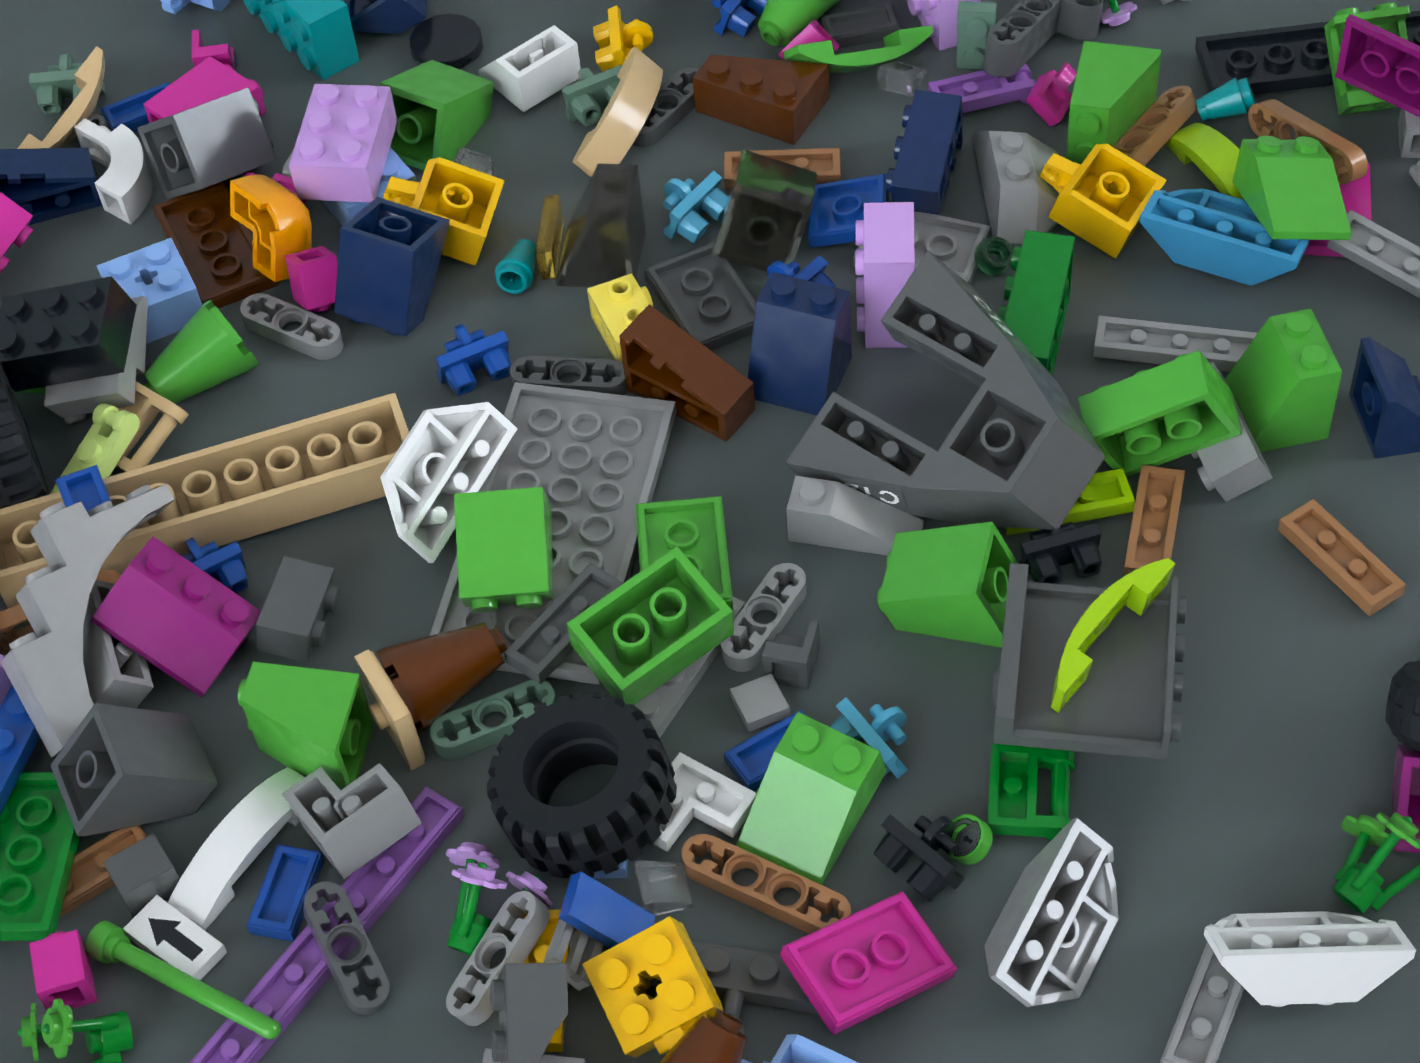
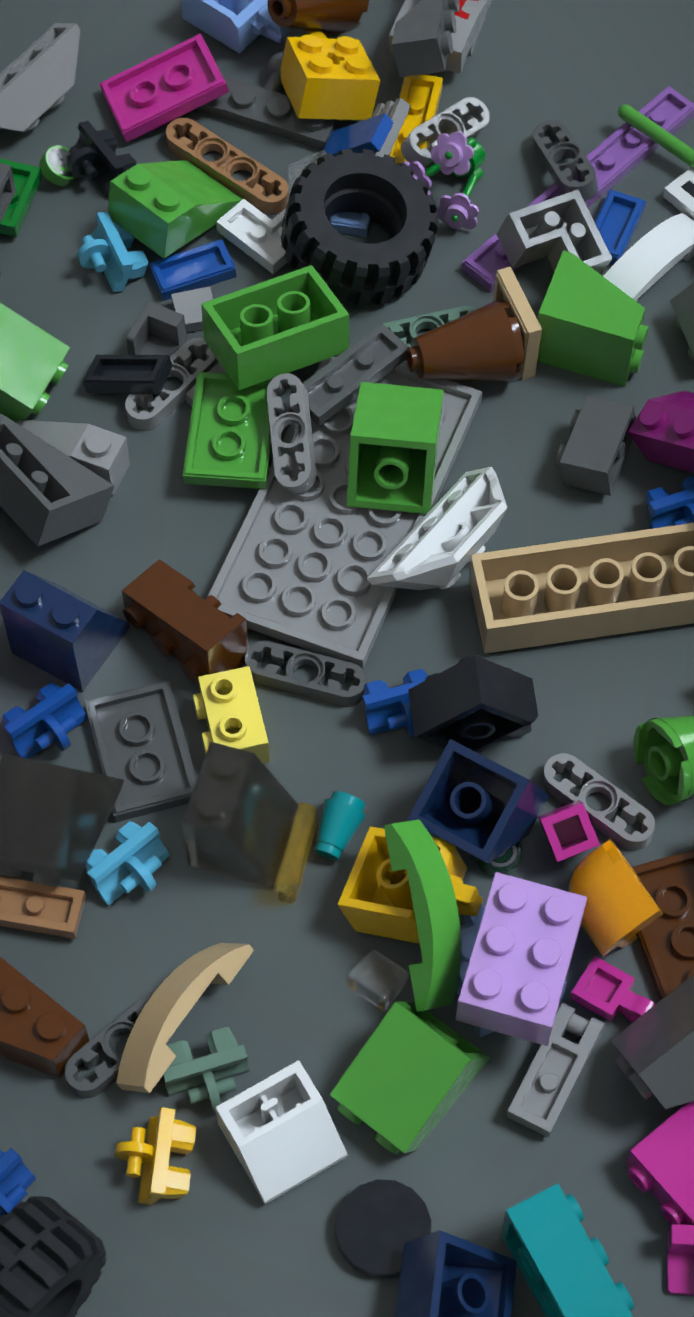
camera: 175 degrees left, 10 degrees up
(400, 330) = (473, 704): none -> black hinge
(425, 167) = (435, 913): none -> bright green slope
(621, 529) = (278, 420): none -> light grey beam
(802, 600) = (127, 374): none -> black tile

